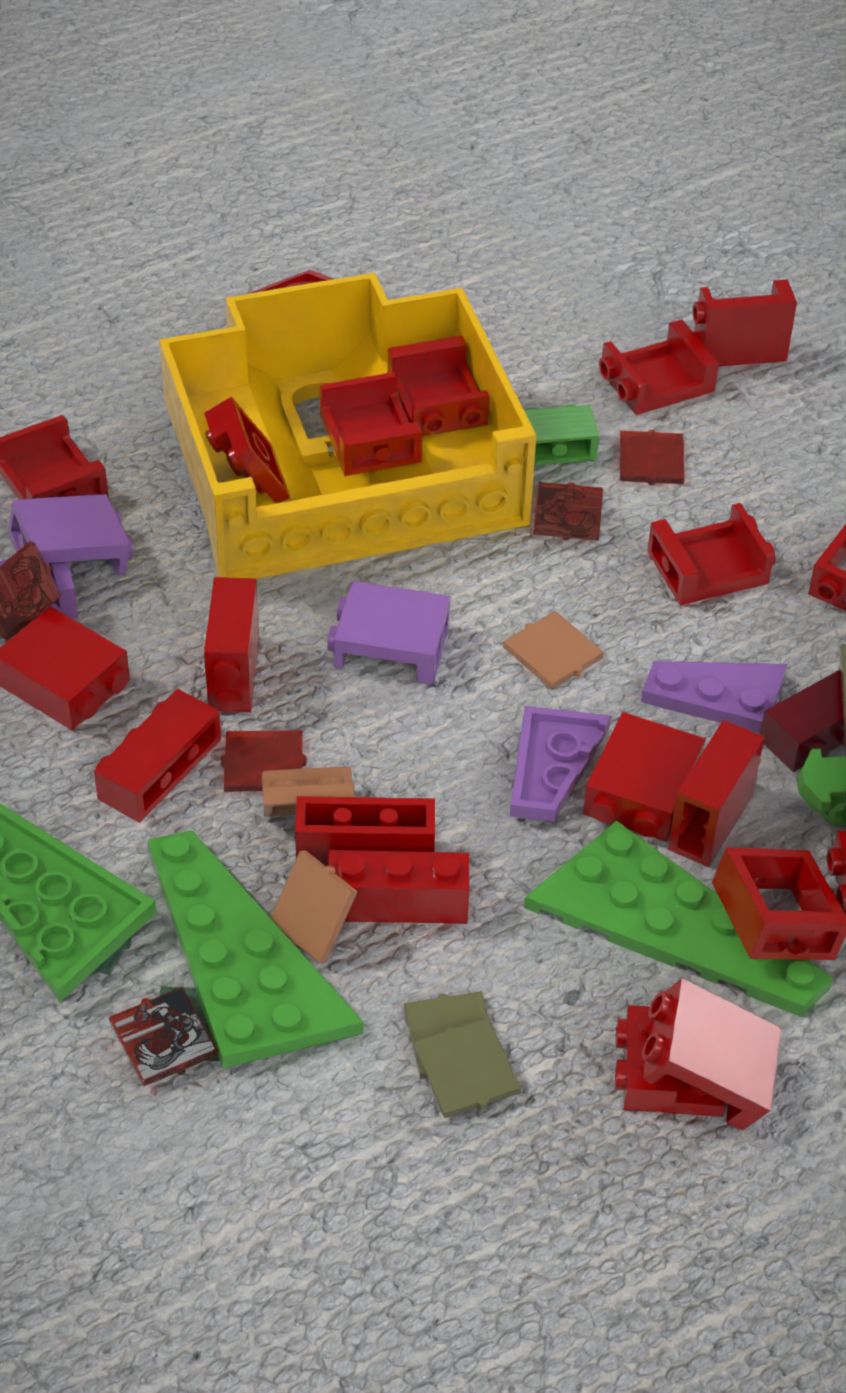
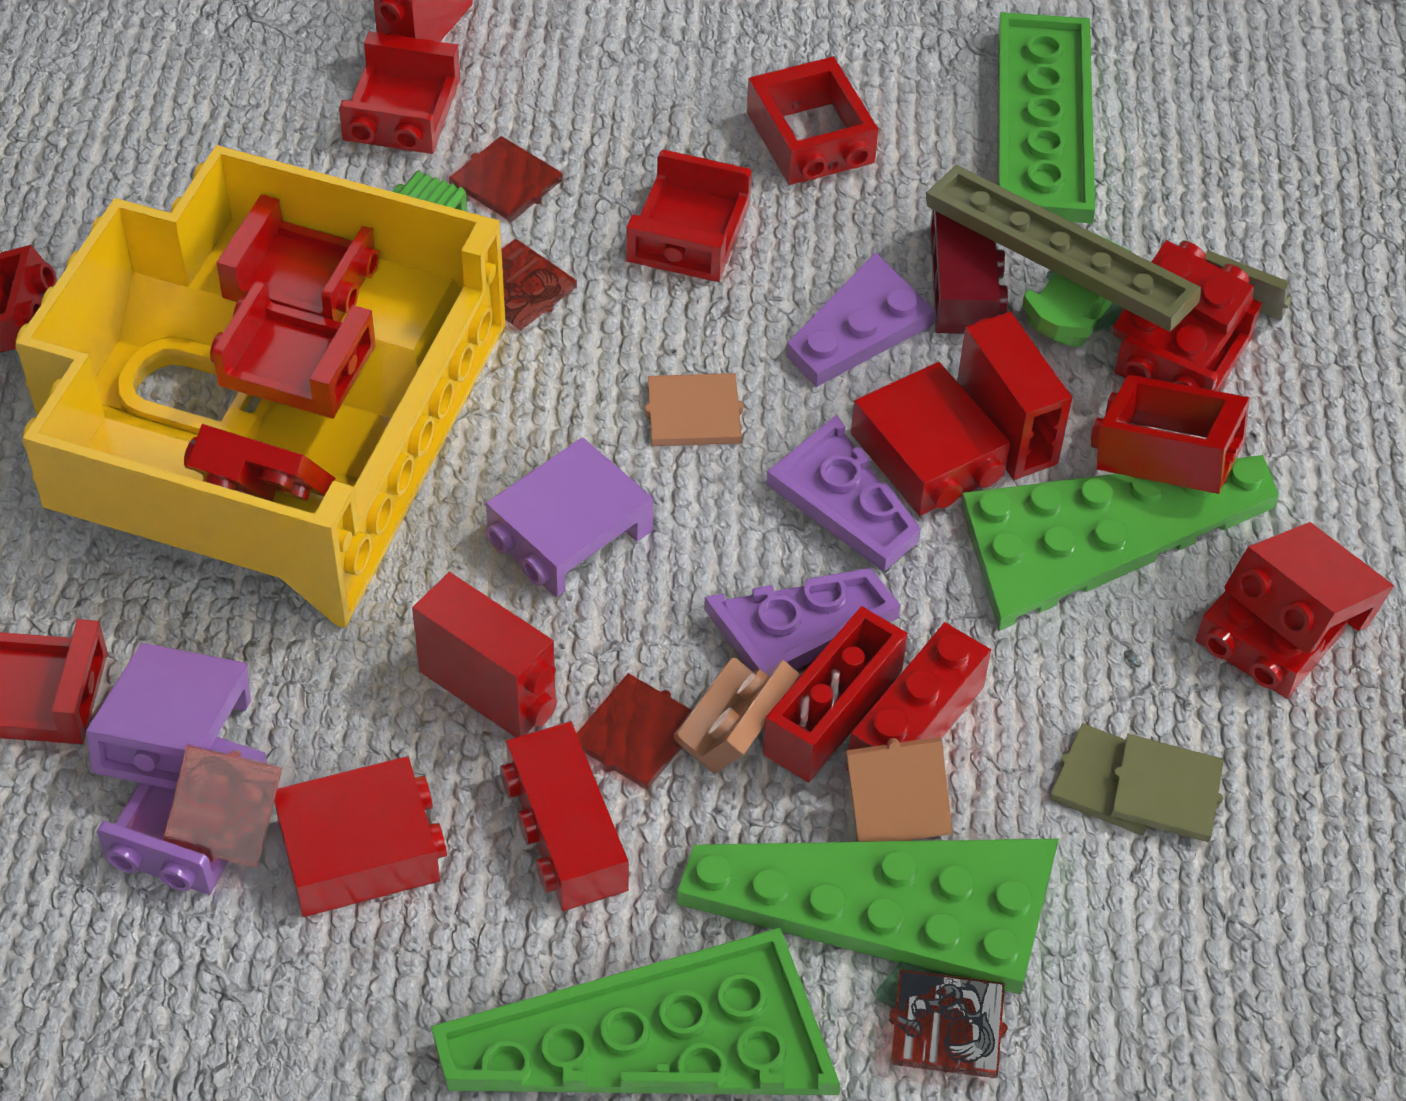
camera: 55 degrees left, 5 degrees up
(401, 773) = (797, 620): none -> medium lavender wing

